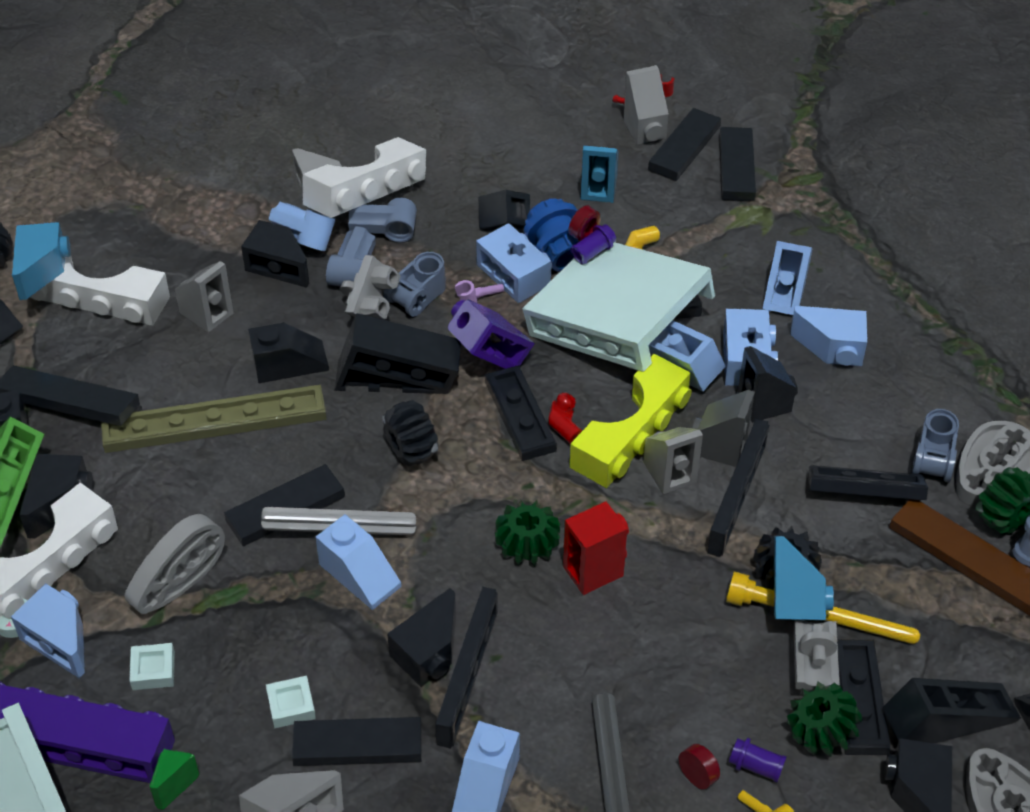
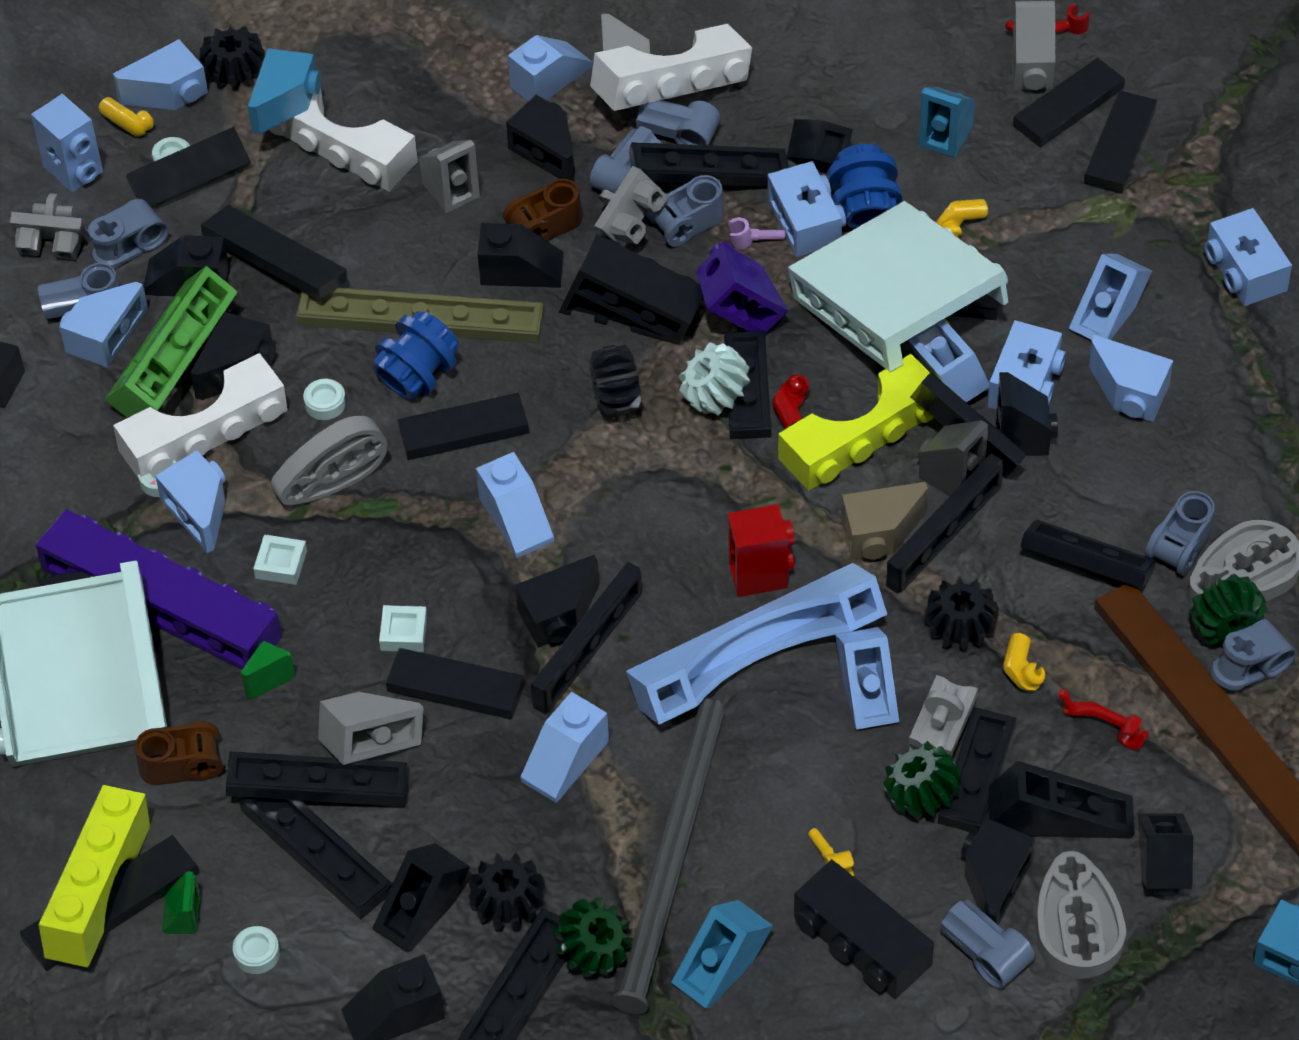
camera: 20 degrees right, 5 degrees up
(150, 510) = (324, 399): none -> light aqua tile
(226, 448) = (412, 359): none -> blue piece
(253, 200) = (545, 67): none -> light blue slope
(300, 307) = (547, 210): none -> reddish brown piece
(306, 225) = (587, 110): light blue piece -> none
(319, 519) = (488, 450): light grey axle -> none
(404, 246) = (726, 163): none -> black tile
(495, 412) = (714, 378): none -> light aqua gear
(527, 532) = (699, 517): dark green gear -> none
(570, 678) = (690, 671): none -> light blue arch
(583, 222) = (888, 184): dark red tile -> none
(597, 241) = (892, 210): dark purple pin -> none
(673, 457) = (884, 466): light grey slope -> none
(681, 496) = (882, 518): none -> dark tan slope
(699, 766) = (779, 793): dark red tile -> none
(708, 388) = (952, 409): none -> black tile
(732, 636) = (867, 677): none -> light blue slope
(745, 590) = (905, 635): yellow piece -> none
(757, 759) = (840, 802): dark purple pin -> none
(798, 585) = (950, 639): dark azure slope -> none
(861, 599) = (1017, 666): none -> yellow arm
(878, 224) = (1248, 257): none -> light blue brick
(975, 627) = (1129, 735): none -> red piece

